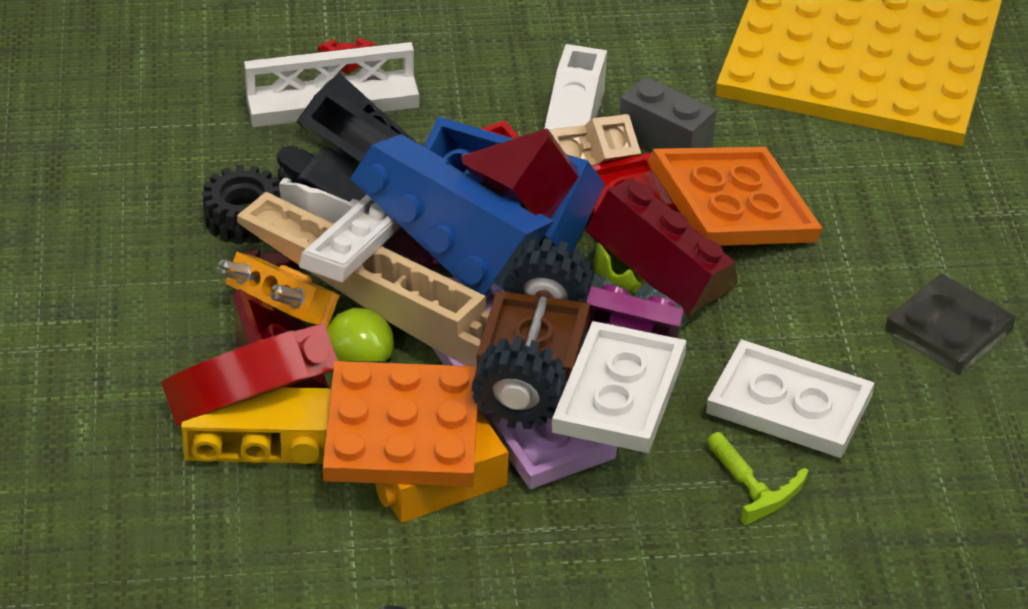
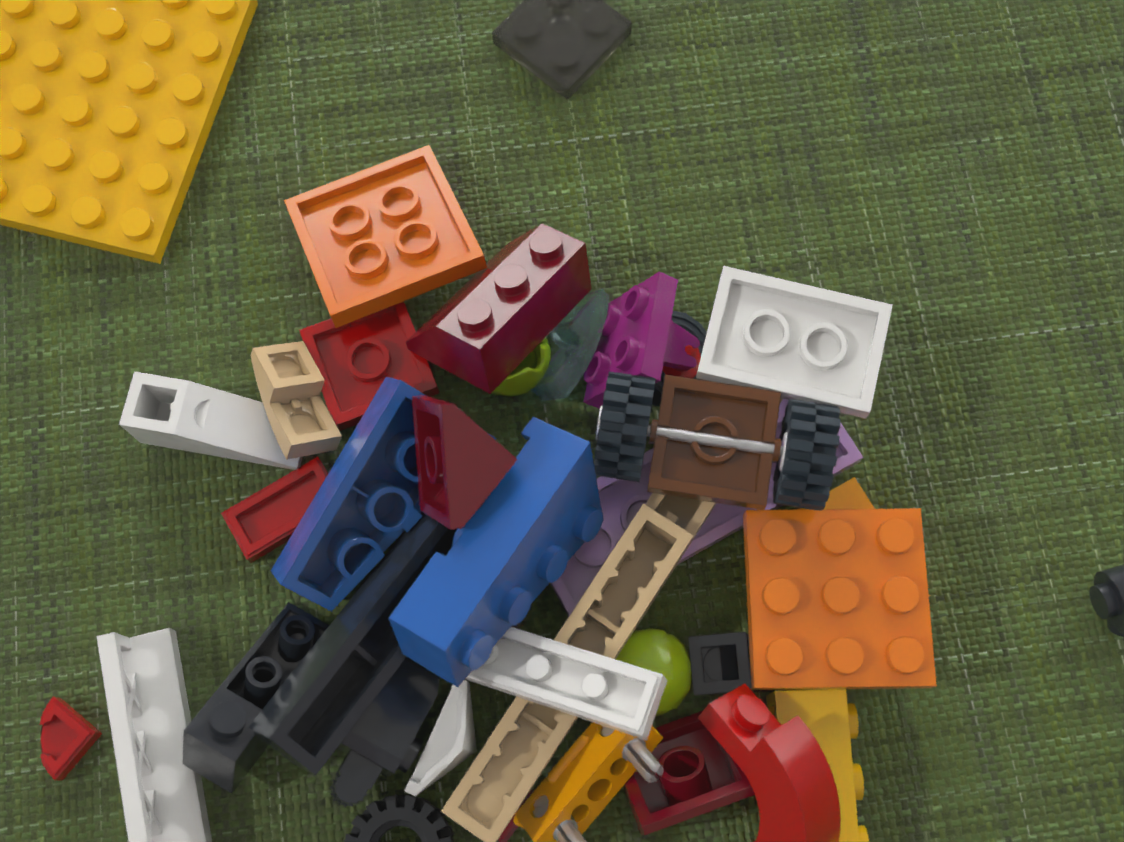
camera: 90 degrees left, 30 degrees up
(667, 117) = (242, 309): dark grey brick -> none
(764, 500) = (843, 220): lime piece -> none
(790, 398) = (700, 191): white plate -> none

